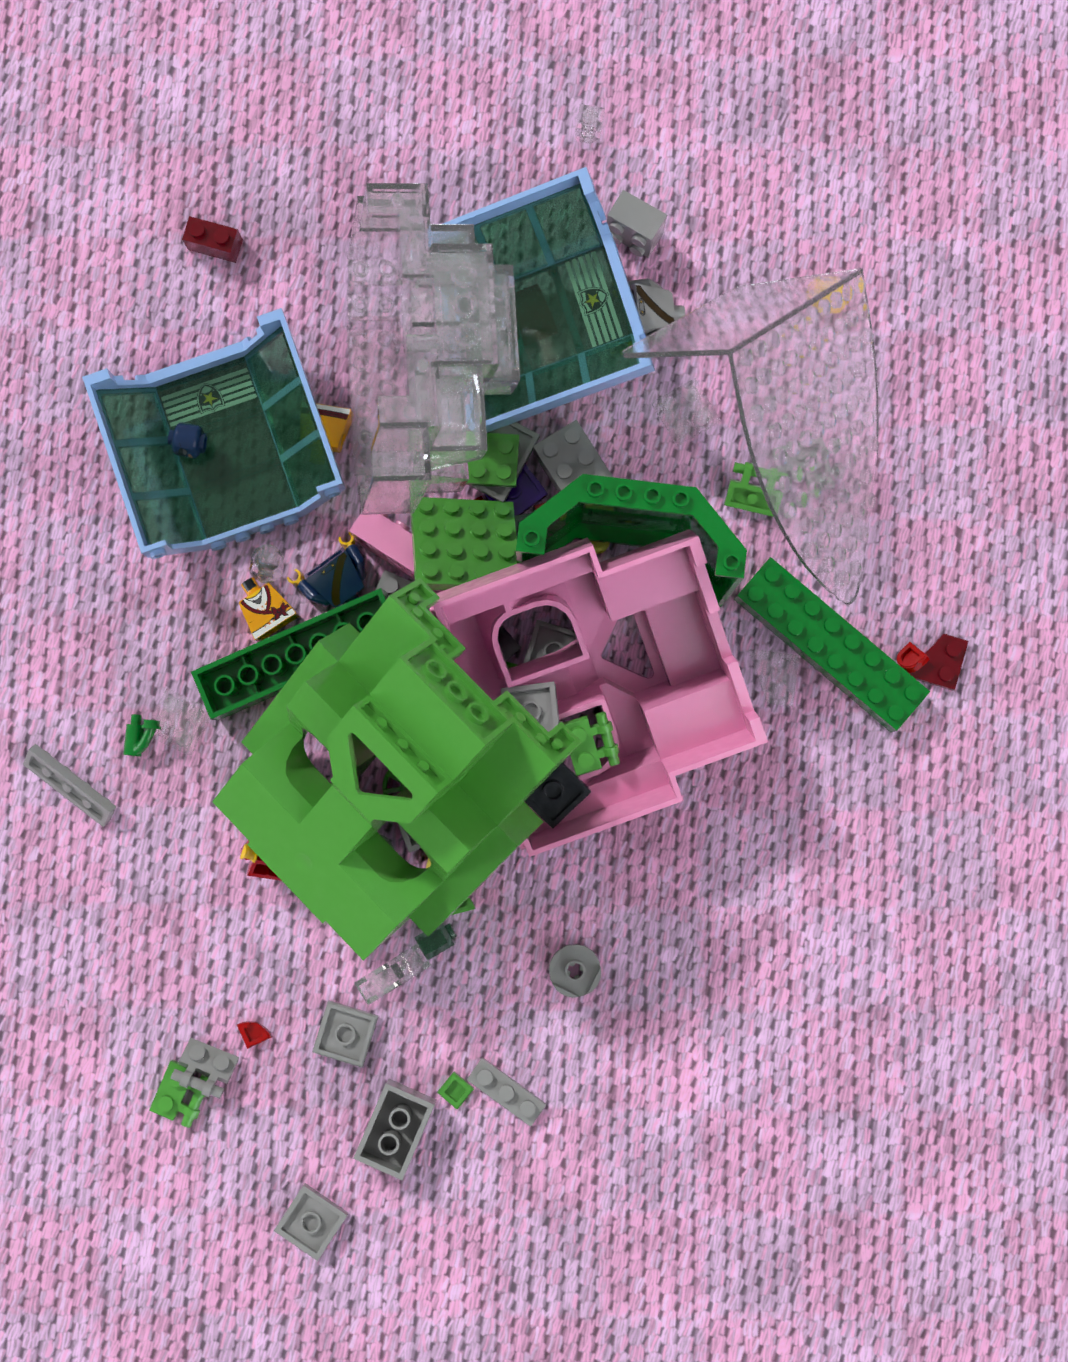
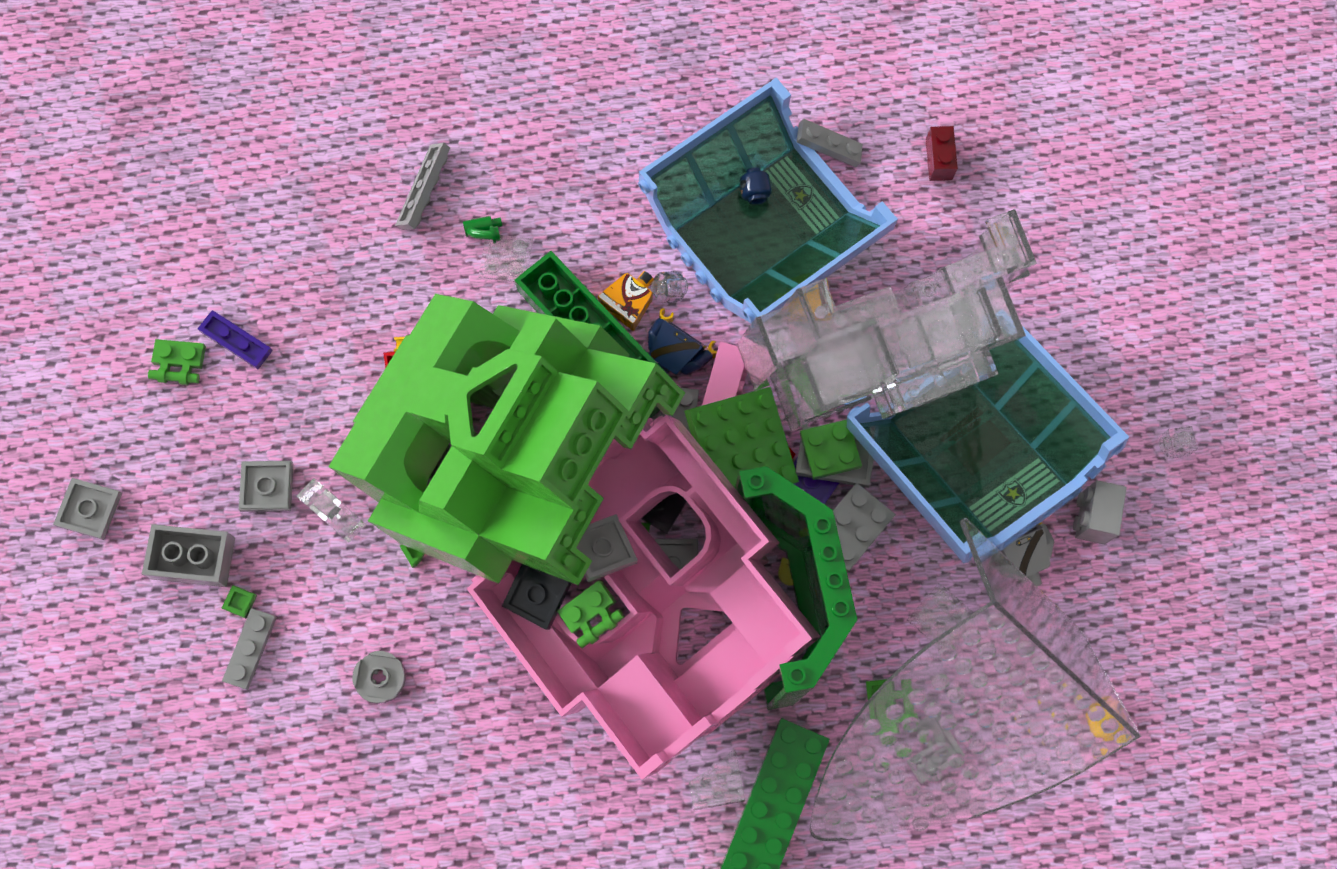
camera: 65 degrees right, 10 degrees down
(163, 348) = (829, 143): none -> light grey plate
(176, 1027) = (235, 339): none -> dark purple plate
(208, 1061) = (211, 374): light grey plate -> none
(253, 1033) = (246, 406): red tile -> none
(437, 942) = (373, 540): clear green brick -> none

